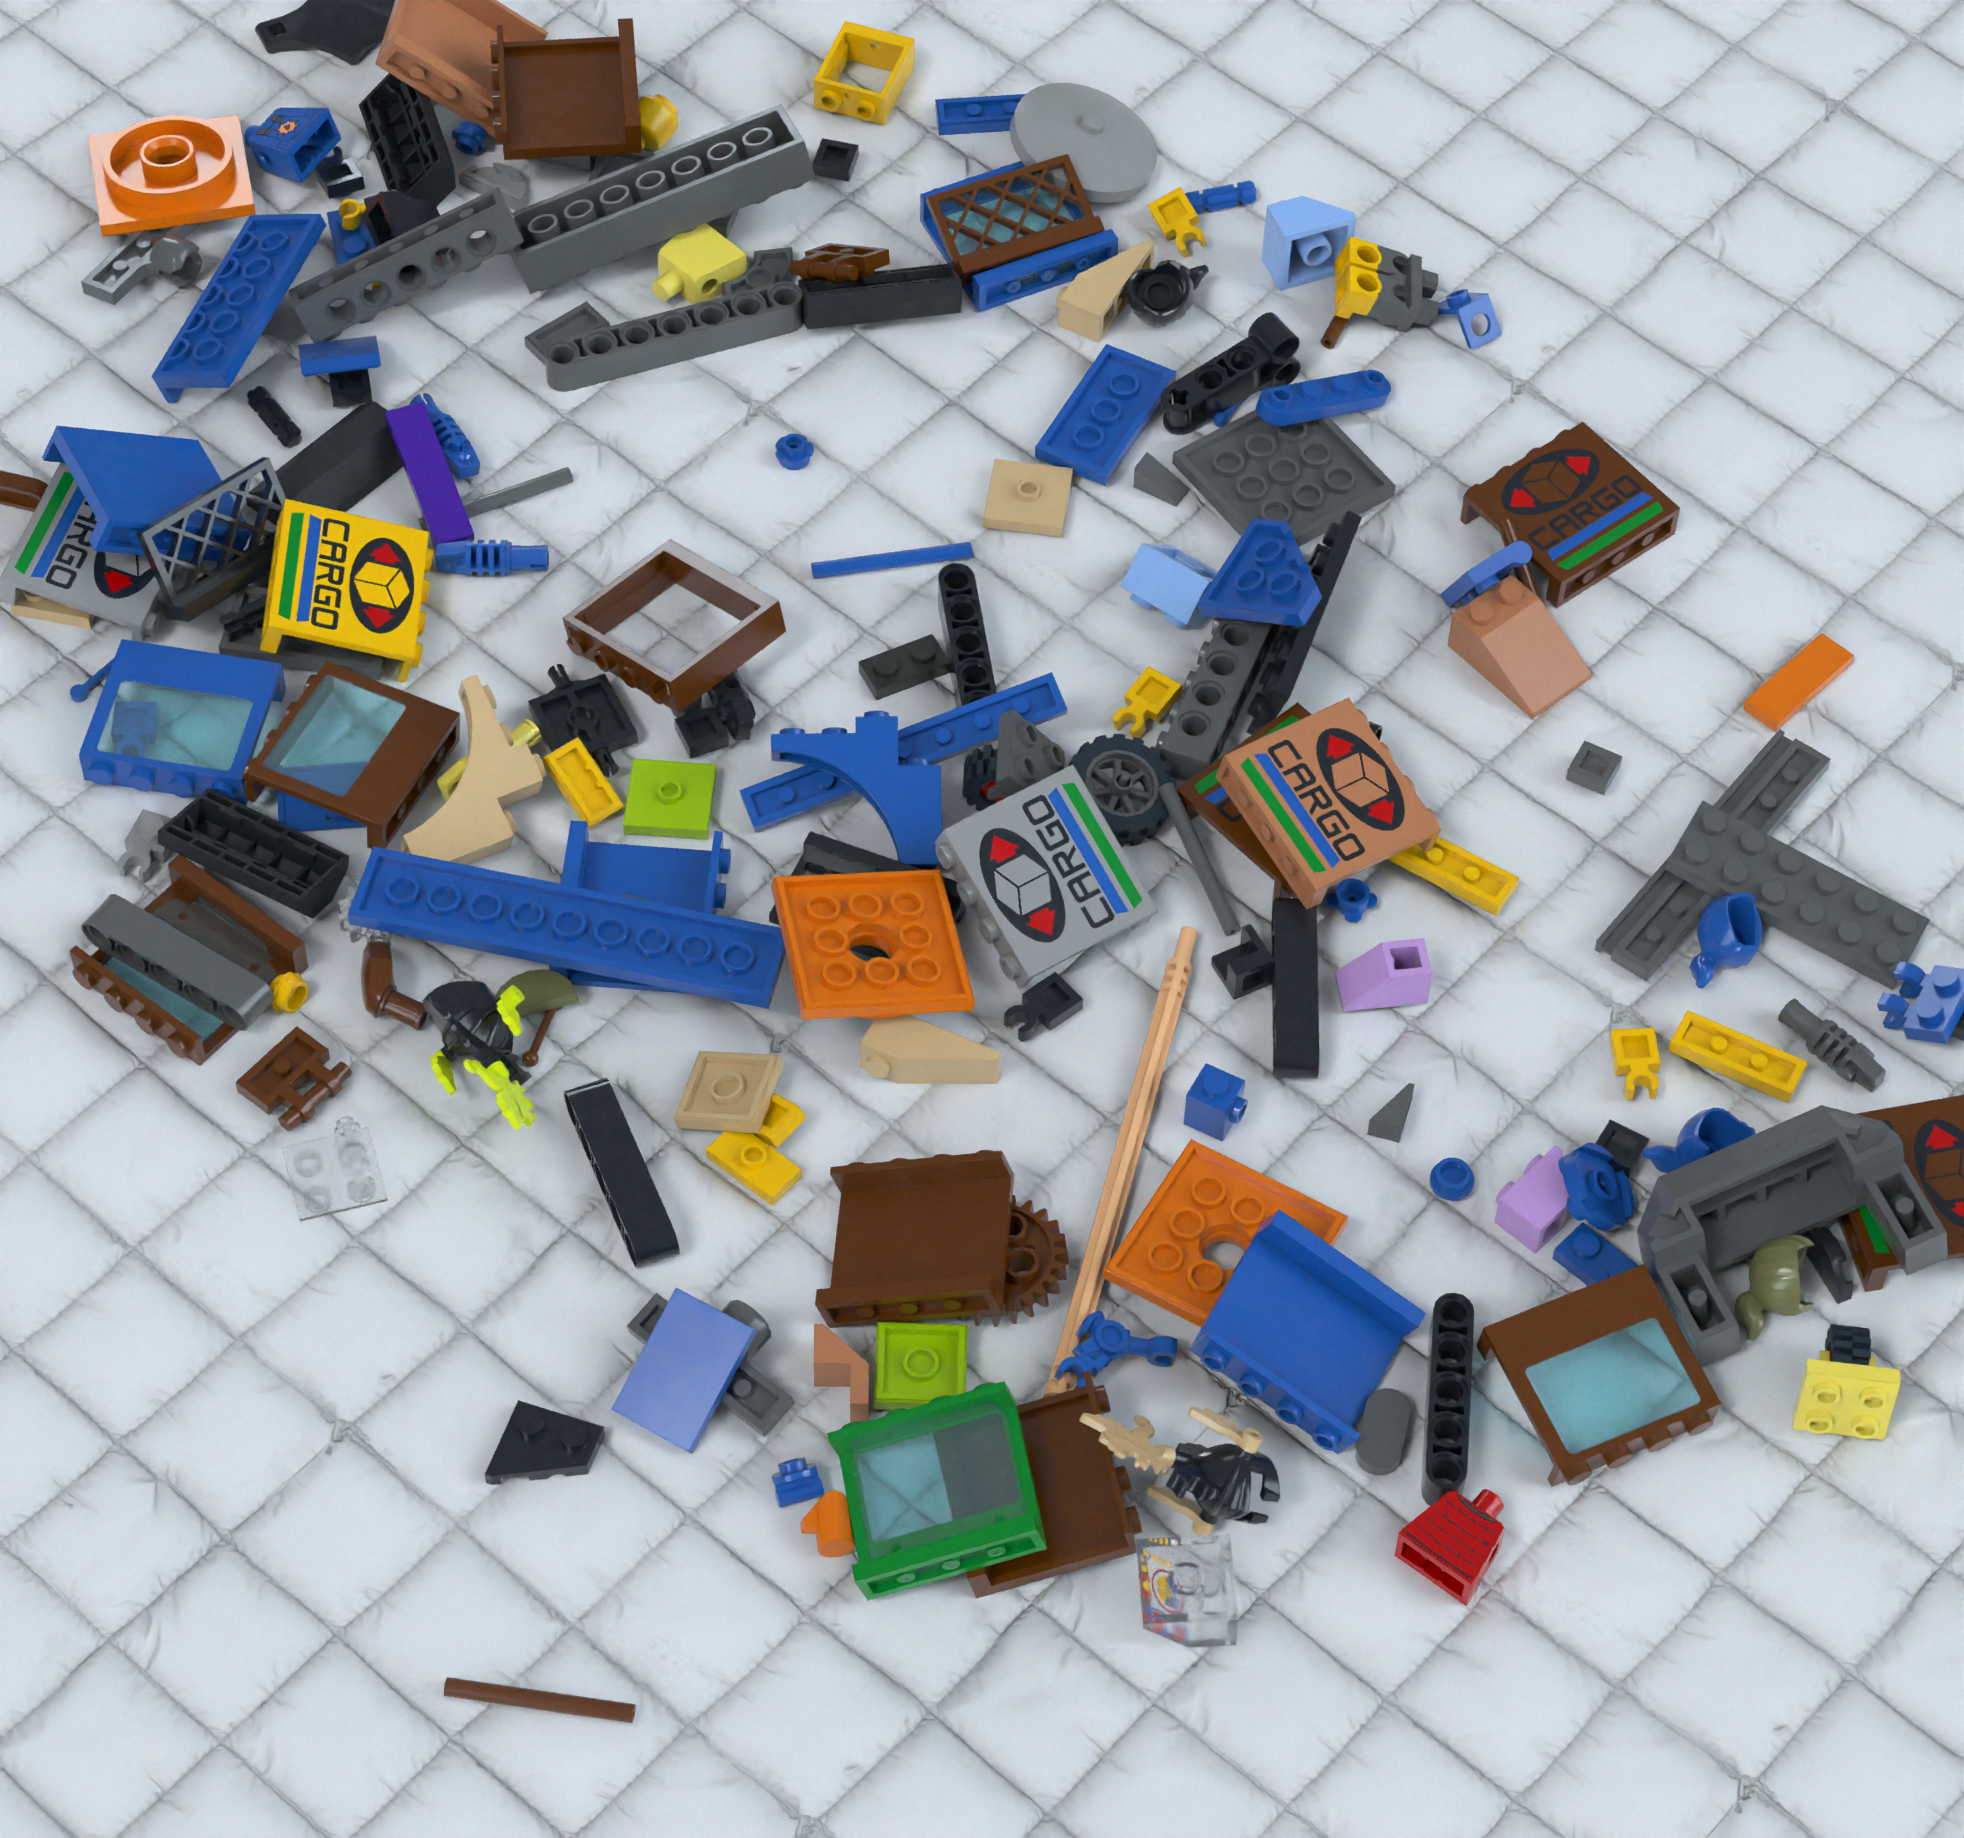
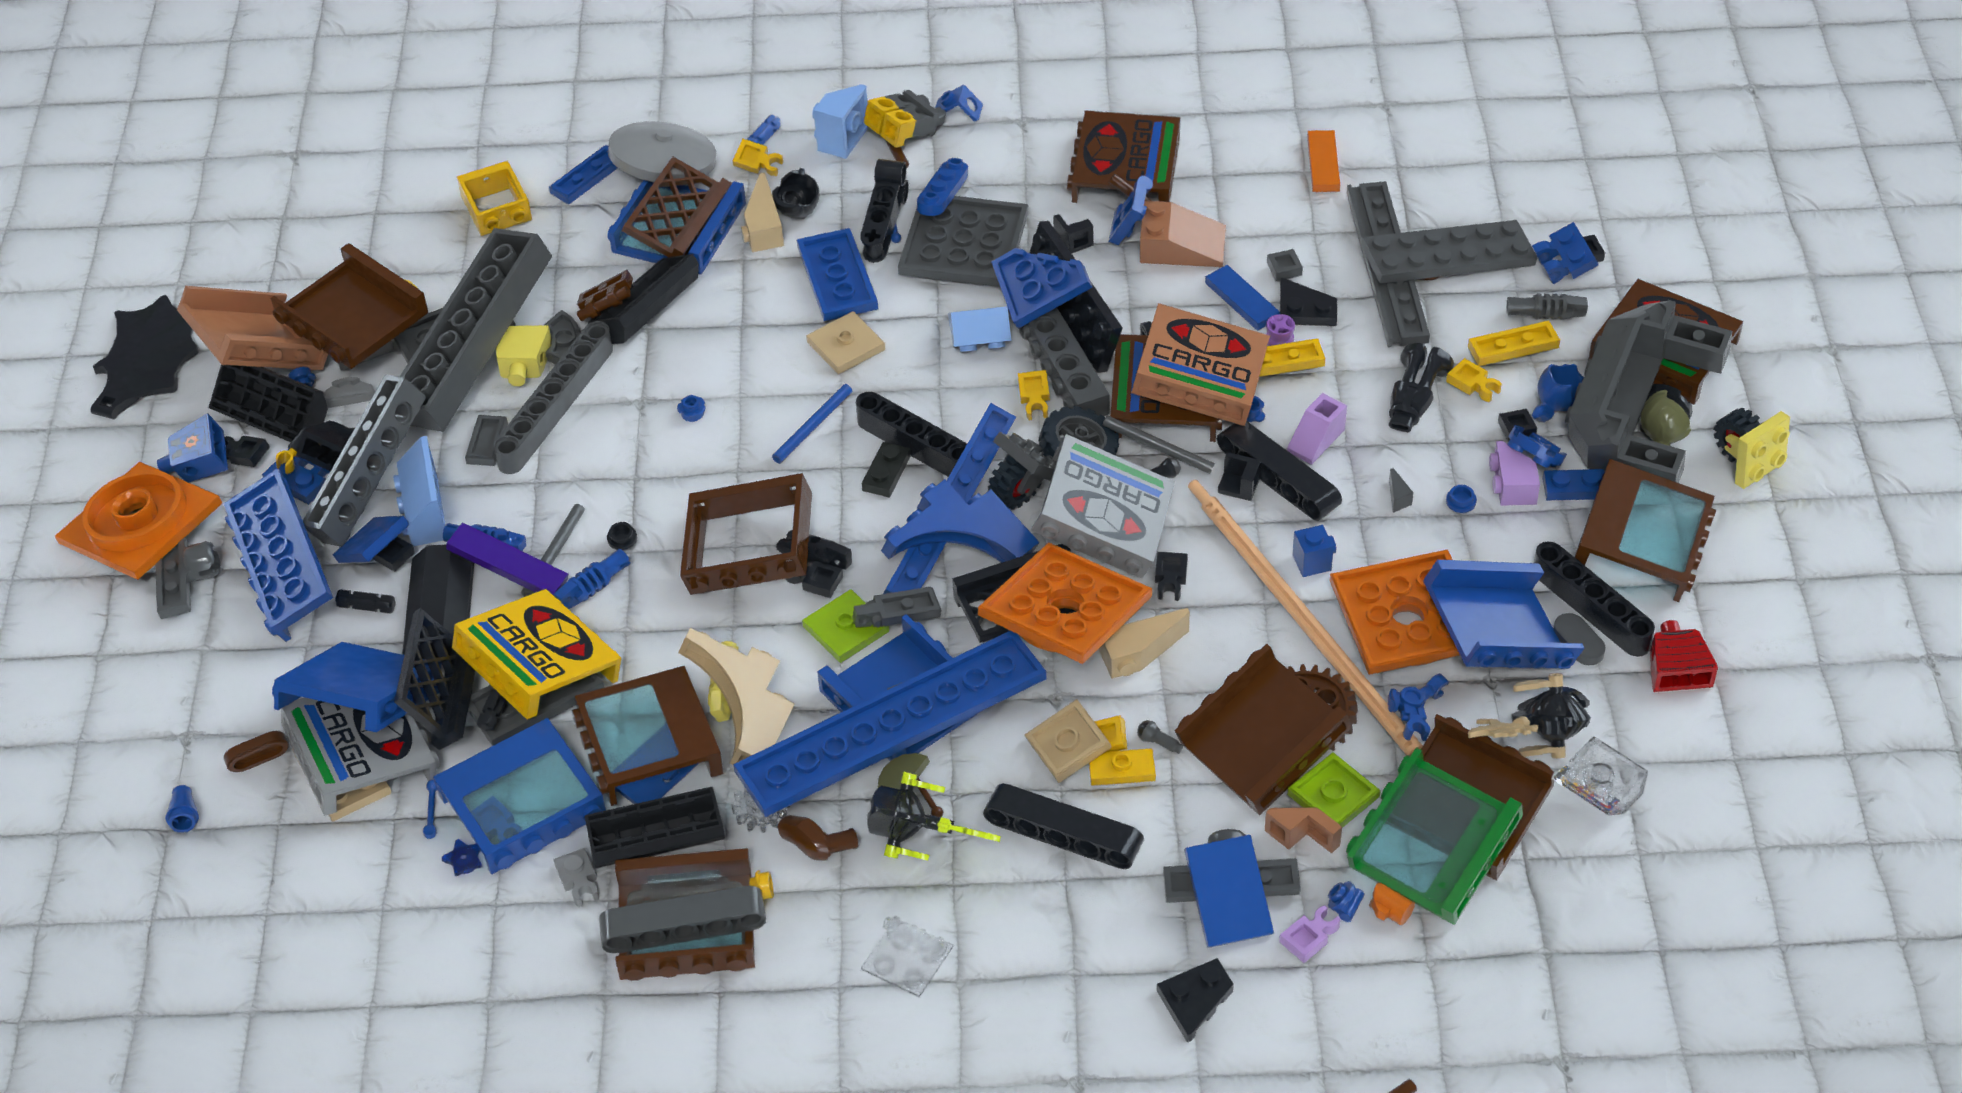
camera: 40 degrees left, 5 degrees down
(64, 735) = (466, 865): none -> clear blue plate
(284, 1070) = (812, 927): reddish brown plate -> none
(434, 345) = (420, 494): none -> light blue slope
(571, 535) = (621, 536): none -> black plate
(582, 783) = (794, 651): yellow plate -> none
(584, 711) = (750, 621): black plate -> none
(711, 1482) = (1308, 937): none -> lavender plate
(741, 824) = (890, 607): none -> dark grey hinge
(822, 1152) = (1149, 732): none -> dark grey piece
(1158, 481) = (903, 287): dark grey piece -> none
(1185, 894) = (1168, 468): none -> black piece
(1406, 559) = (1076, 235): none -> black panel
(1500, 834) = (1280, 329): none -> medium lavender wheel
(1504, 769) = (1241, 296): none -> blue tile
(1533, 1023) = (1412, 399): none -> black piece
(1562, 832) = (1307, 305): none -> black wing
(1727, 936) = (1444, 294): blue hair -> none

